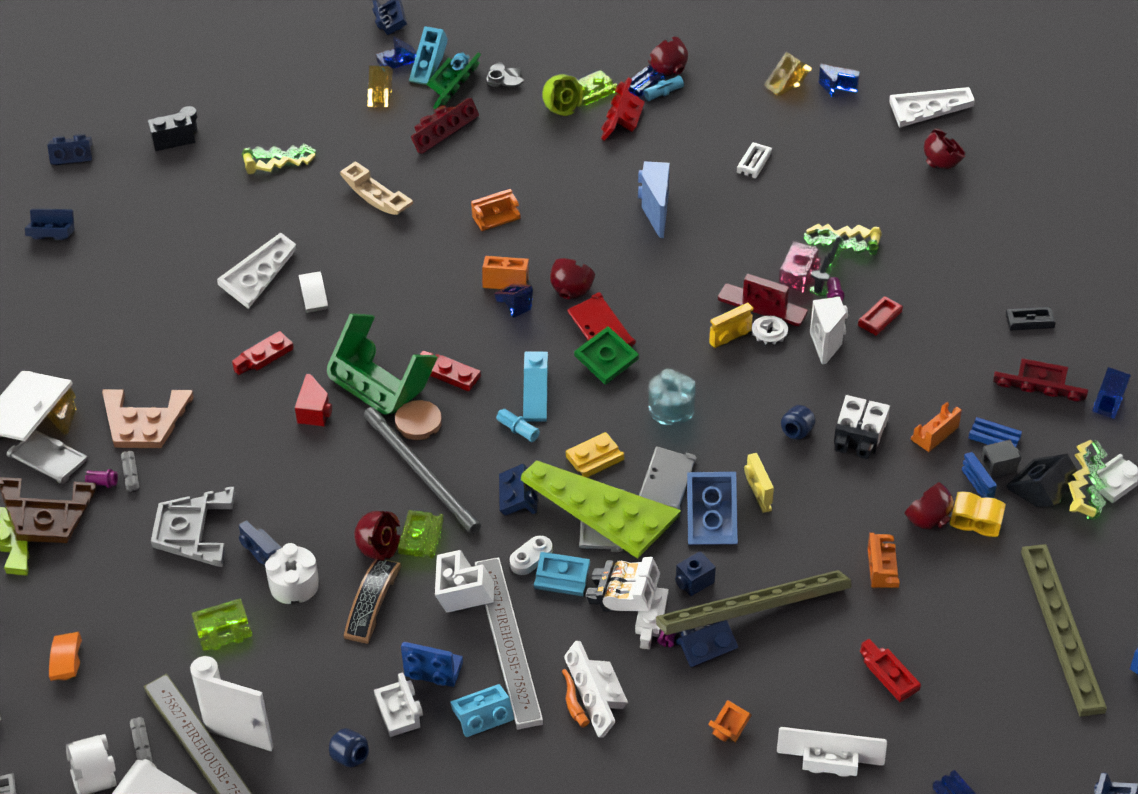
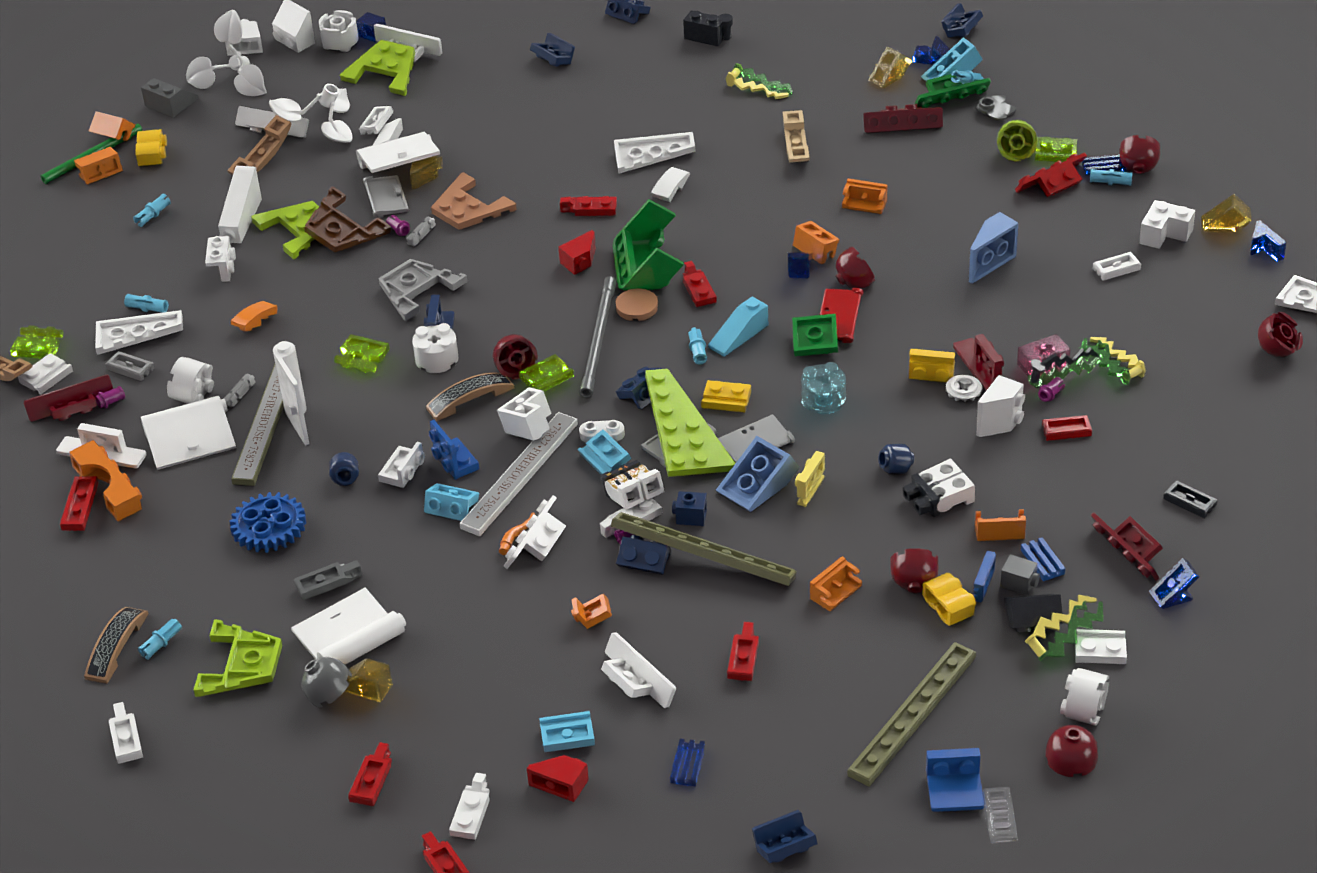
camera: 45 degrees right, 5 degrees down
(752, 103) = (1166, 221): none -> white brick

